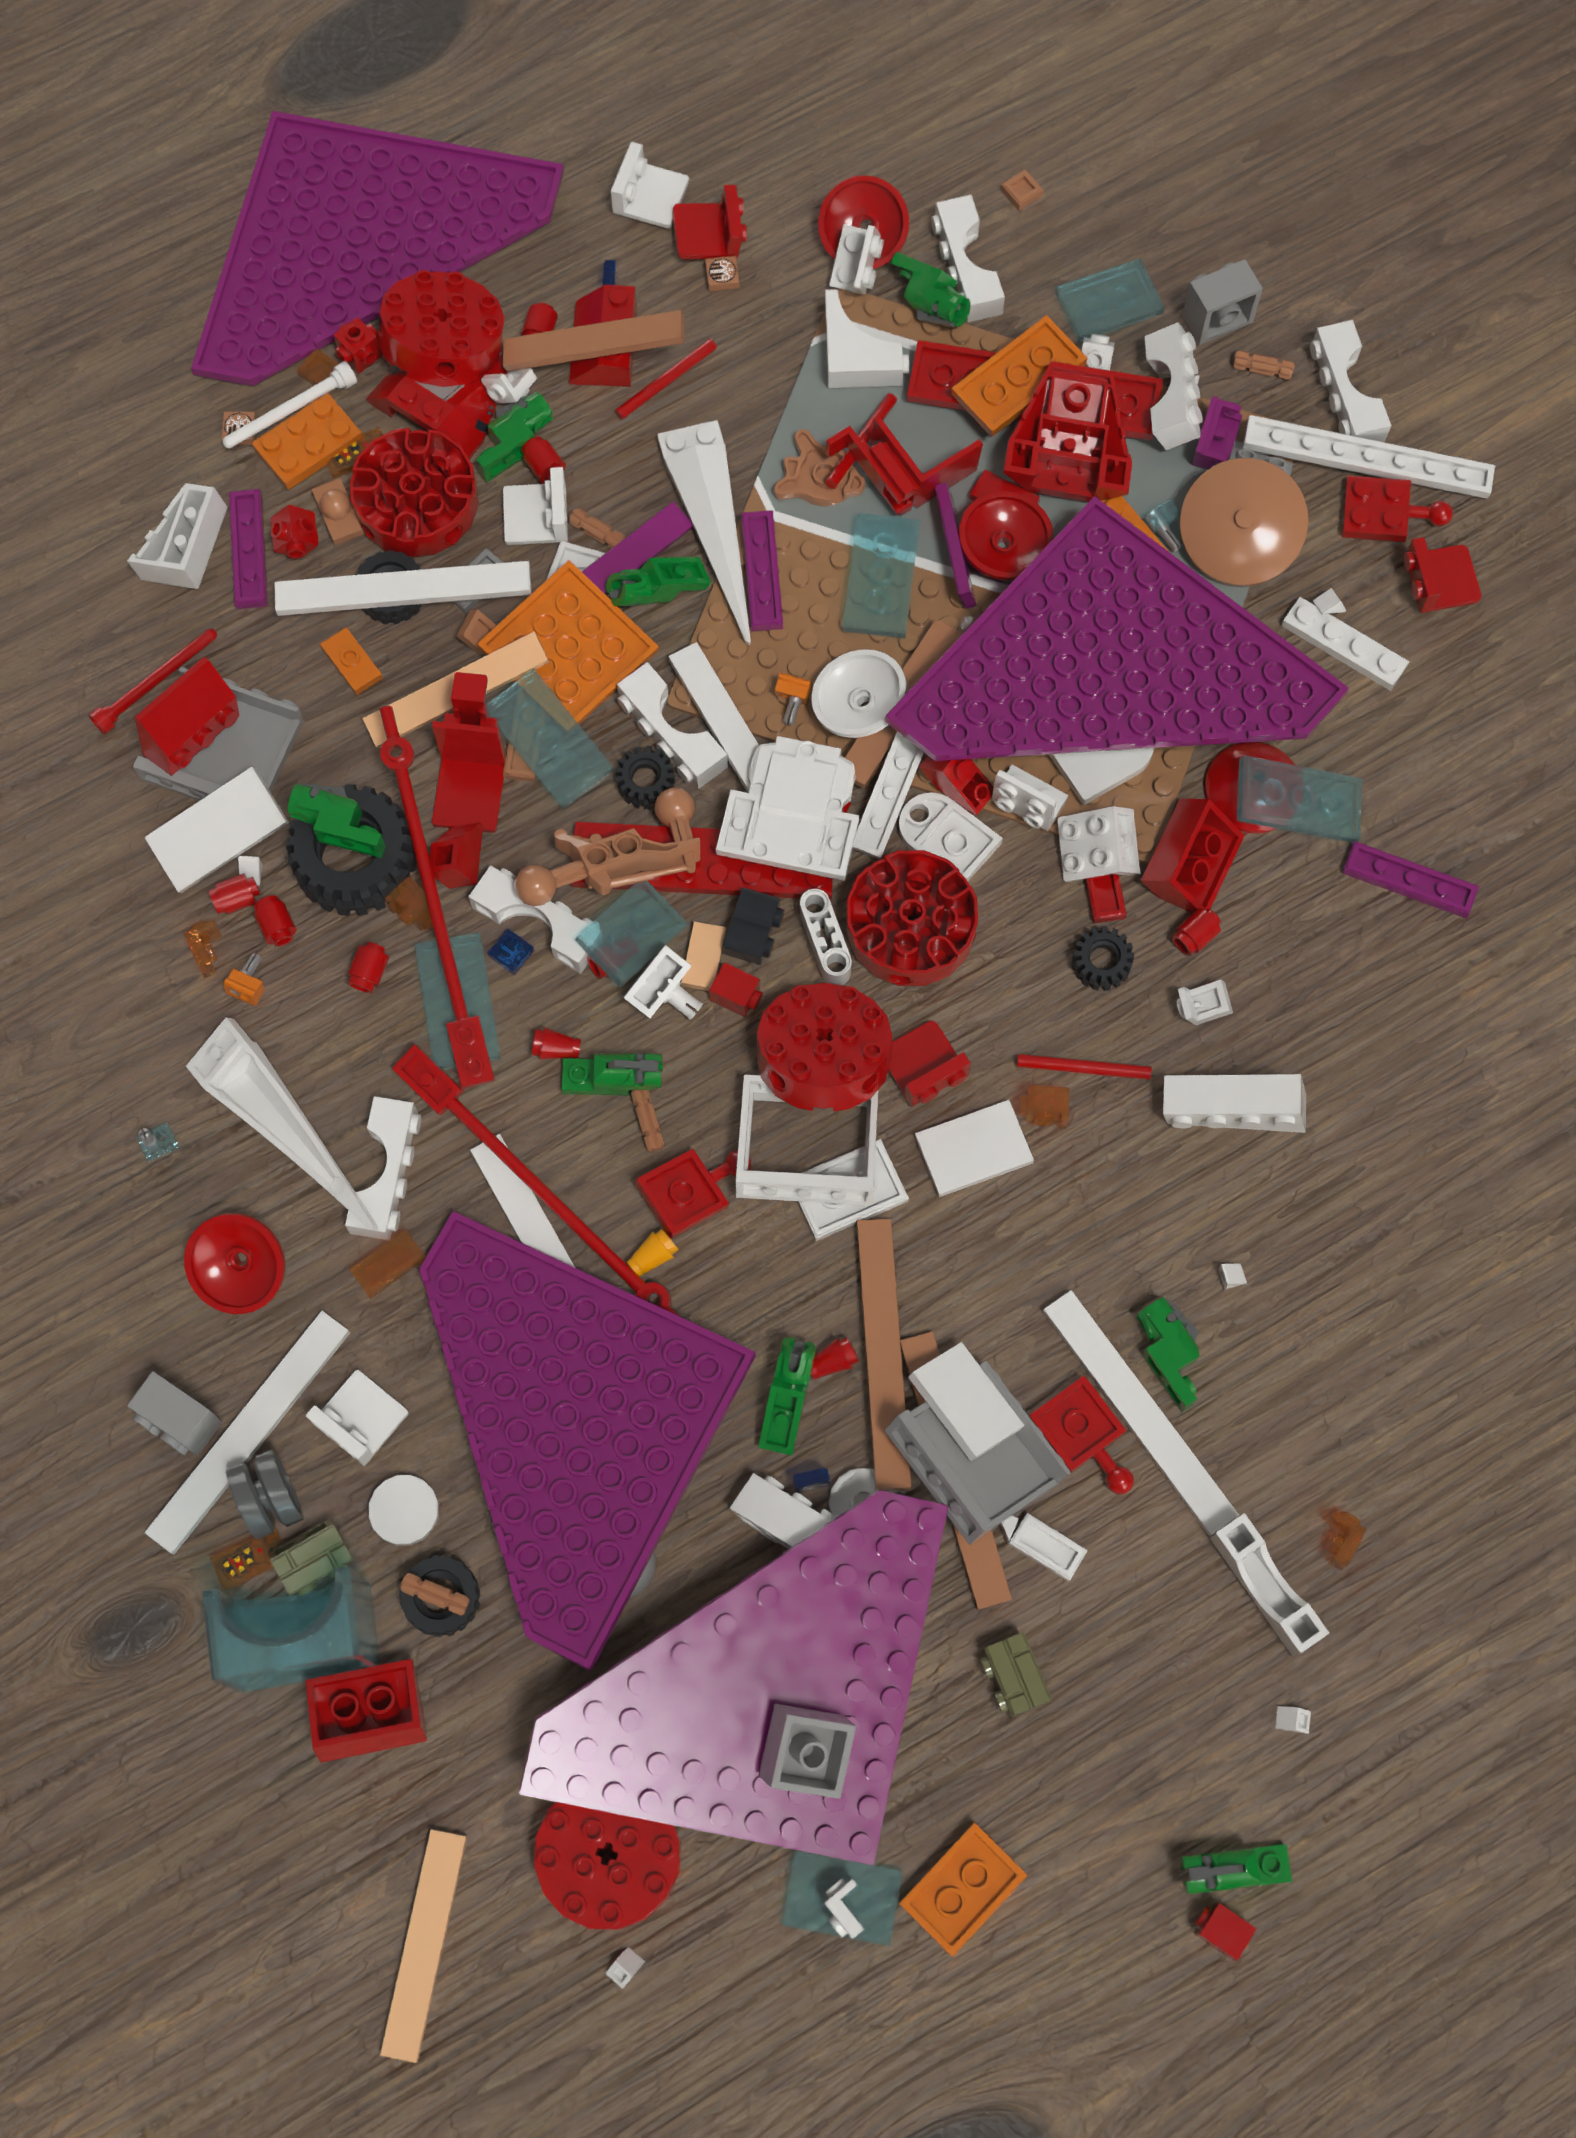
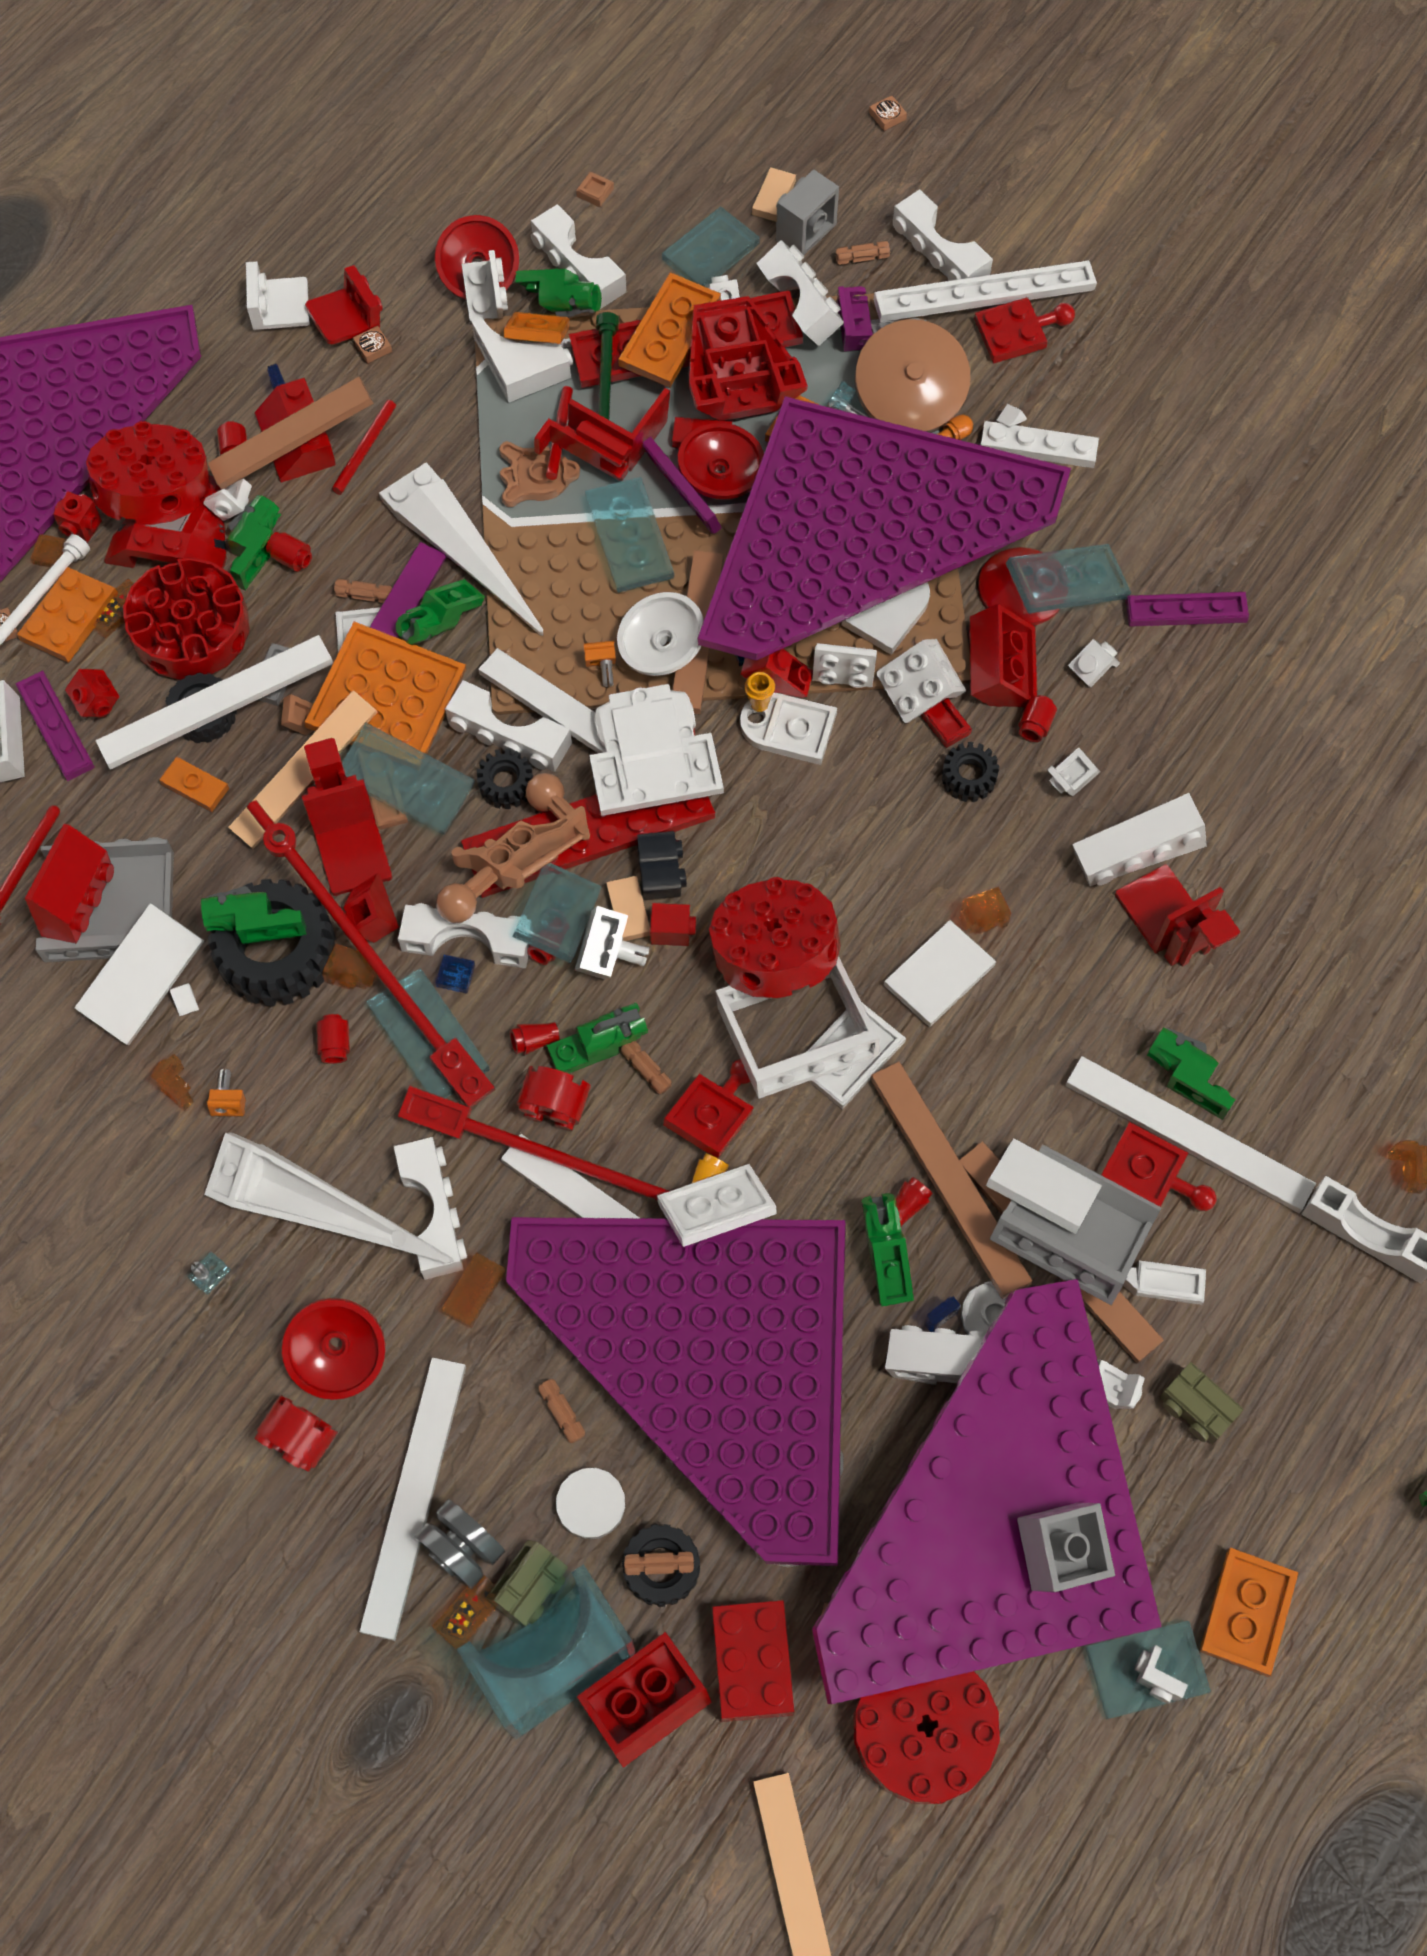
camera: 25 degrees left, 5 degrees down
(166, 1327) = (296, 1432): none -> red brick
(179, 1417) = (340, 1509): light grey brick -> none
(234, 894) = (180, 1024): red brick -> none
(274, 921) = (228, 1033): red brick -> none
(337, 511) = (122, 663): nougat tile -> none
(359, 1417) = (511, 1438): white bracket -> none
(416, 1412) = (561, 1411): none -> nougat axle
(480, 1721) = (752, 1661): none -> red brick
(536, 511) = (304, 595): white bracket -> none
(543, 1111) = (553, 1096): none -> red brick
(625, 1967) = (987, 1824): white piece -> none
(644, 1283) = (716, 1205): none -> white tile
(762, 570) = (525, 569): magenta tile -> none
(812, 924) = (712, 845): white beam -> none
(887, 797) = (725, 707): white plate -> none
(888, 321) = (537, 327): none -> orange tile
(920, 887) = (794, 802): red brick -> none
(926, 1064) = (867, 919): red bracket -> none
(929, 790) = (759, 690): none -> light orange cone
(943, 1623) = (1120, 1388): none -> white bracket
(957, 348) = (607, 325): none -> dark green piece
(1084, 1066) = (998, 867): red bar -> none
(1204, 260) = (775, 185): none -> light nougat tile
(1231, 1188) = (1171, 917): none -> red piece
(1232, 1275) = (1206, 988): white piece -> none
(1265, 594) = (958, 427): none -> orange cylinder
(1285, 896) = (1094, 661): none -> white bracket
(1365, 219) = (887, 113): none -> nougat tile
(1441, 576) = (1089, 362): red bracket -> none

